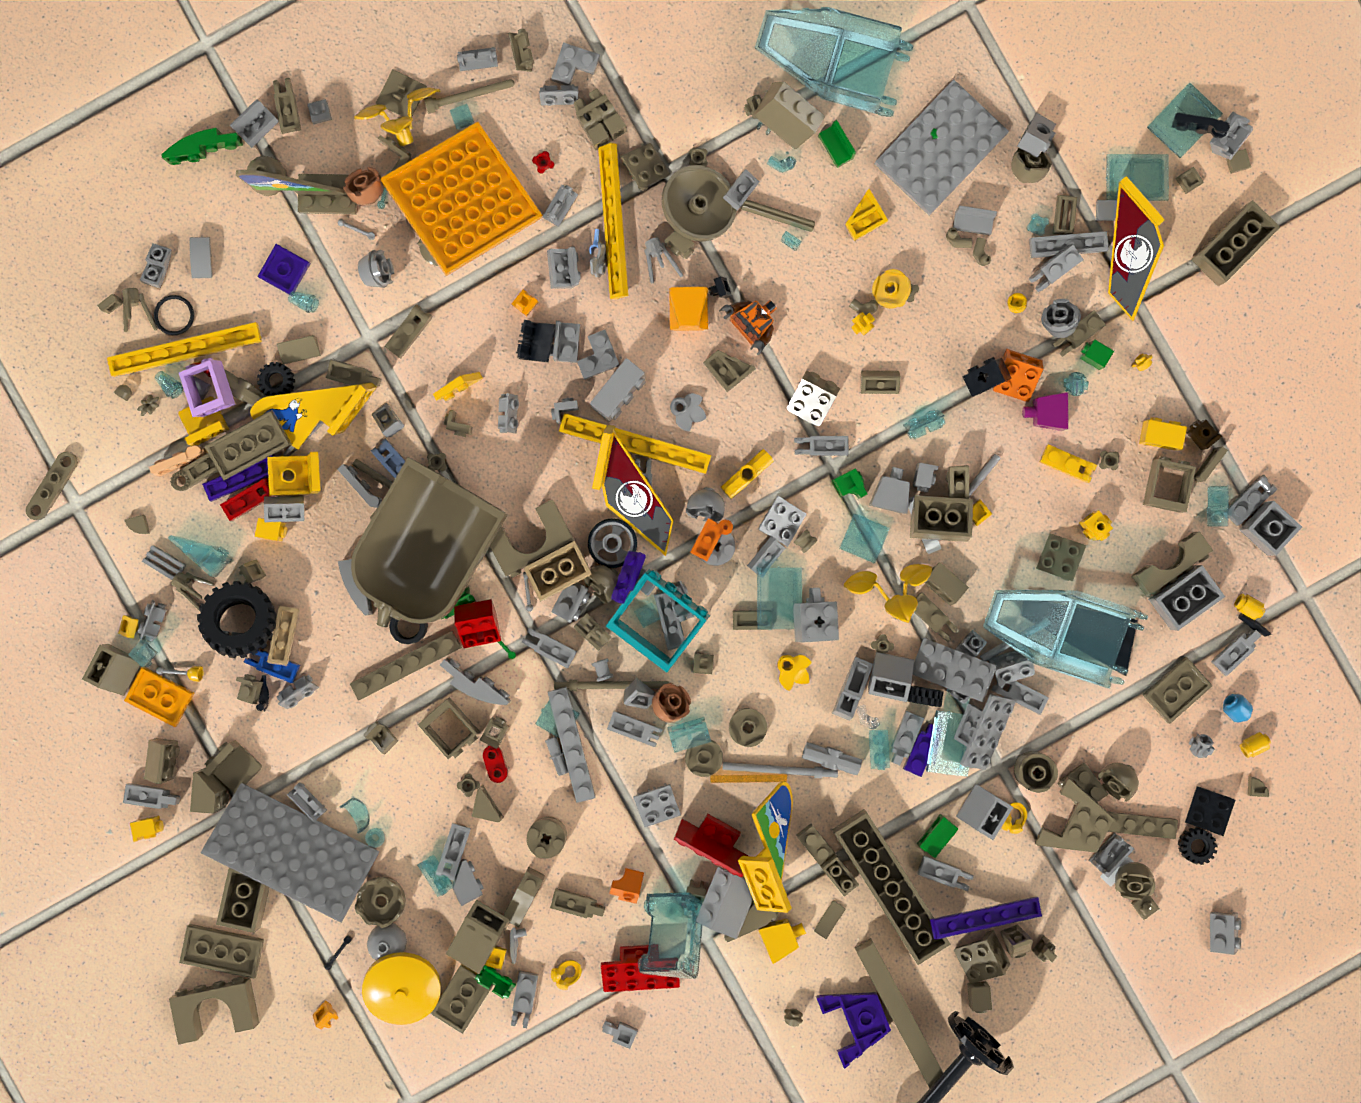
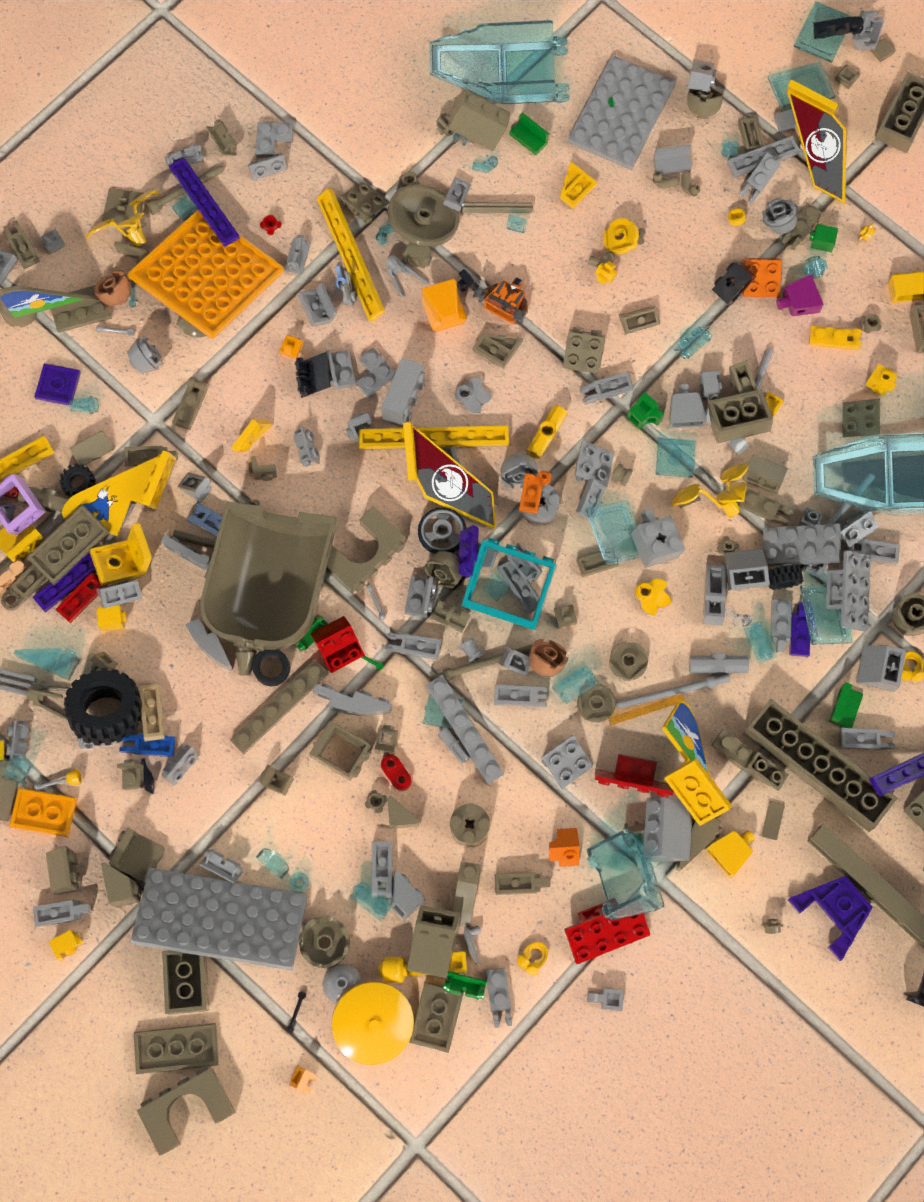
camera: 20 degrees left, 15 degrees down
(435, 946) = (393, 969): none -> yellow head
(482, 117) = (204, 202): none -> dark purple tile
(558, 571) = (398, 567): tan slope -> none
(602, 120) = (310, 174): dark tan hips -> none
(652, 208) = (382, 233): none -> clear light blue arm

